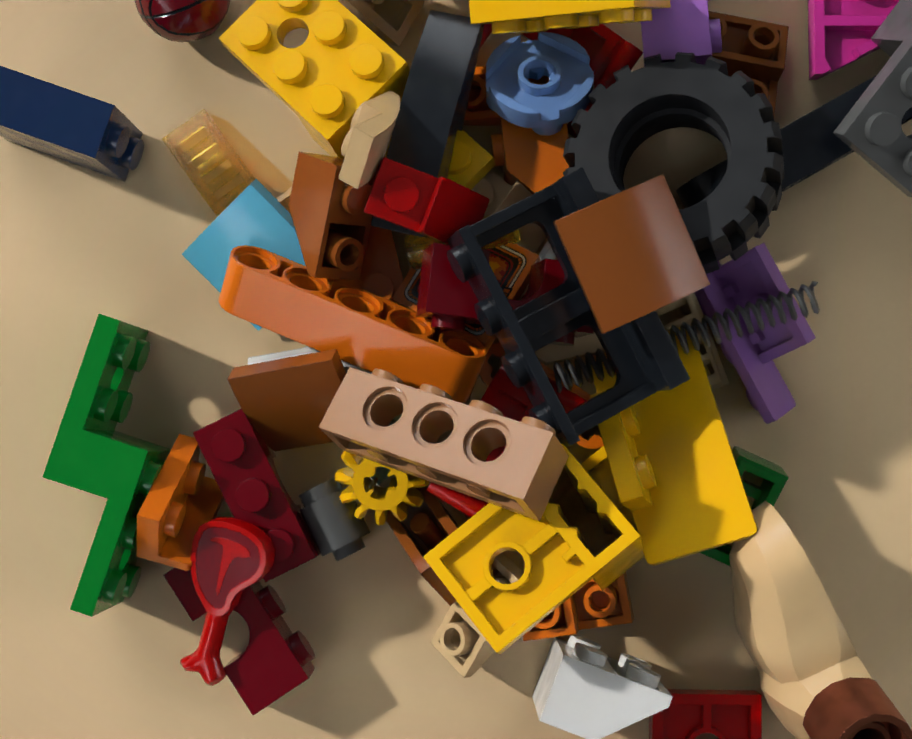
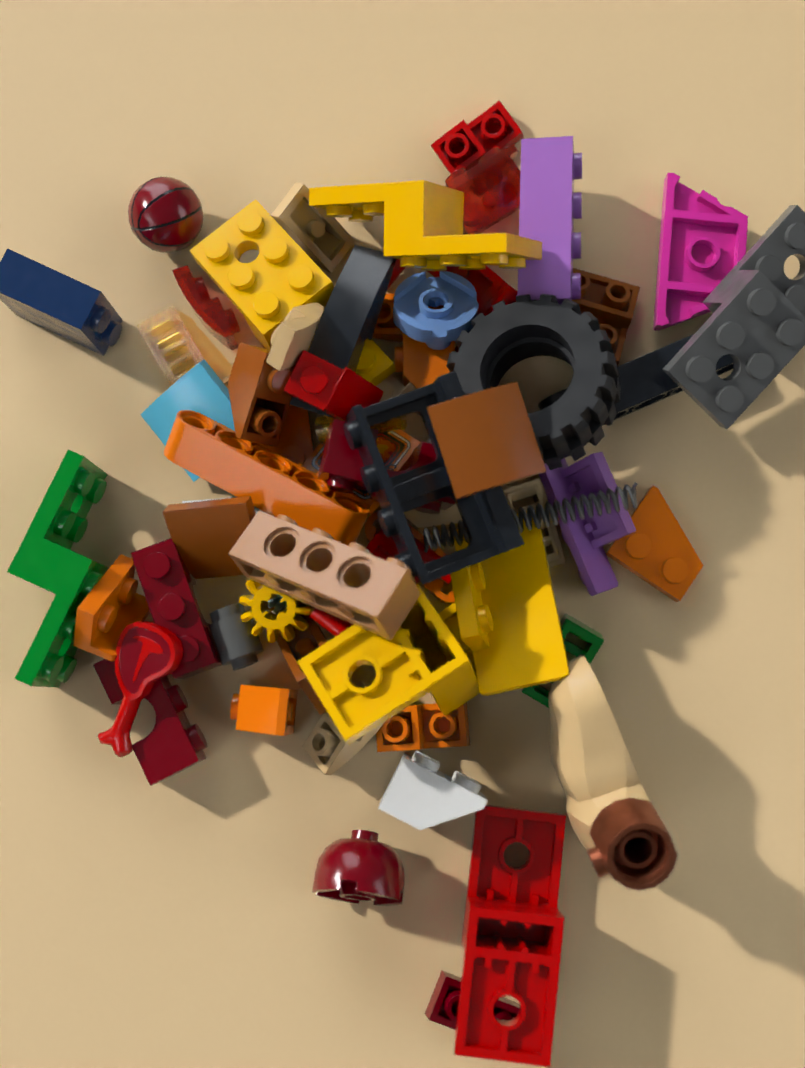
camera: 10 degrees right, 5 degrees down
(255, 116) = (209, 311): none -> clear red slope
(381, 607) = (264, 710): none -> orange slope
(844, 356) = (658, 548): none -> orange wing

